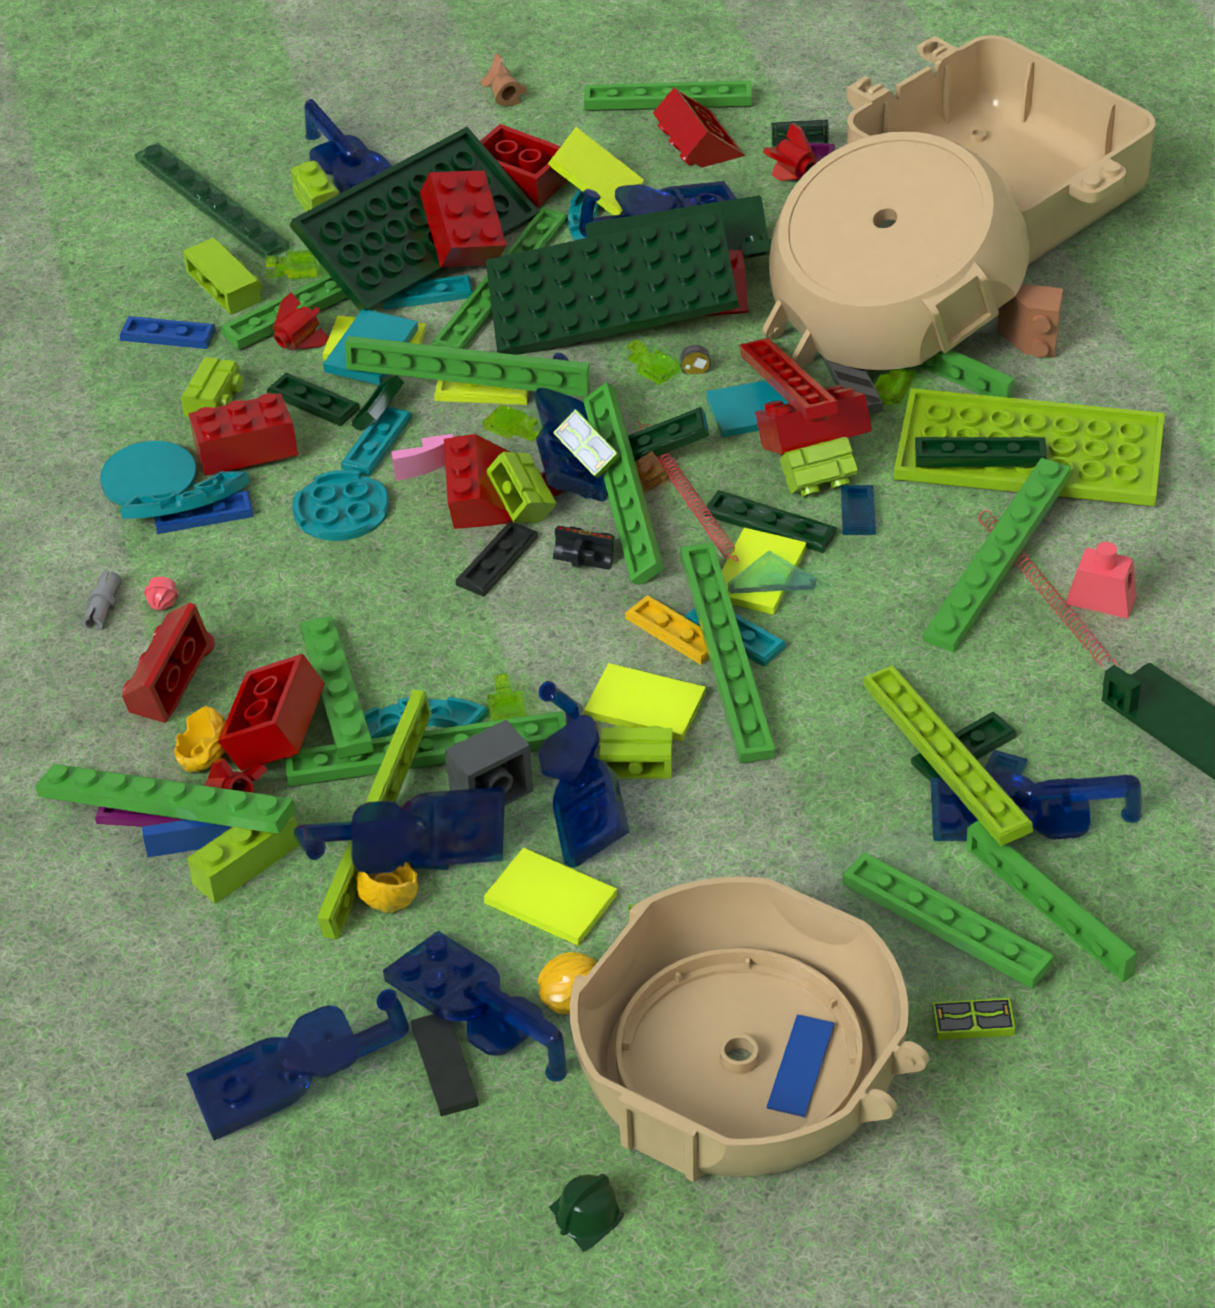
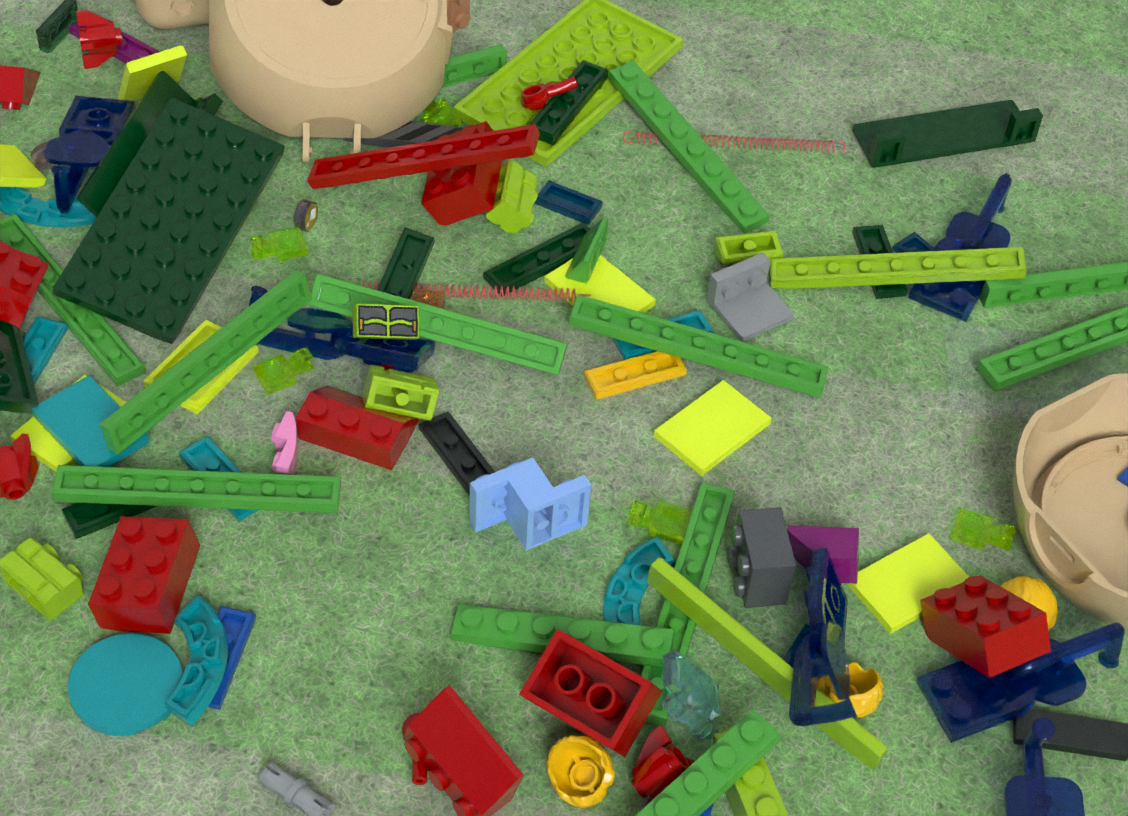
camera: 70 degrees left, 5 degrees up
(161, 593) = (329, 735): coral plate -> none
(321, 773) = (694, 696): none -> clear light blue plate
(341, 505) = (295, 546): teal tile -> none
(344, 427) = (197, 489): none -> bright green plate
(377, 403) = (174, 449): dark green tile -> none
(450, 606) = (529, 503): none -> light blue bracket
(501, 939) = (985, 625): none -> red brick
(533, 819) = (840, 542): none -> magenta slope
(583, 547) = (499, 386): black hips -> none
(588, 795) = (836, 497): clear blue plate -> none
(638, 751) = (779, 454): lime brick -> none
(736, 406) = (389, 207): teal tile -> none
(749, 184) = (141, 72): none -> neon yellow tile
(771, 574) = (622, 280): clear light blue tile -> none
(788, 538) = (588, 253): none -> bright green slope
(823, 665) = (746, 299): none -> light grey bracket
(893, 644) = (744, 246): none -> lime slope
(963, 425) = (536, 96): none -> red plate
(1104, 582) = (764, 104): coral torso -> none

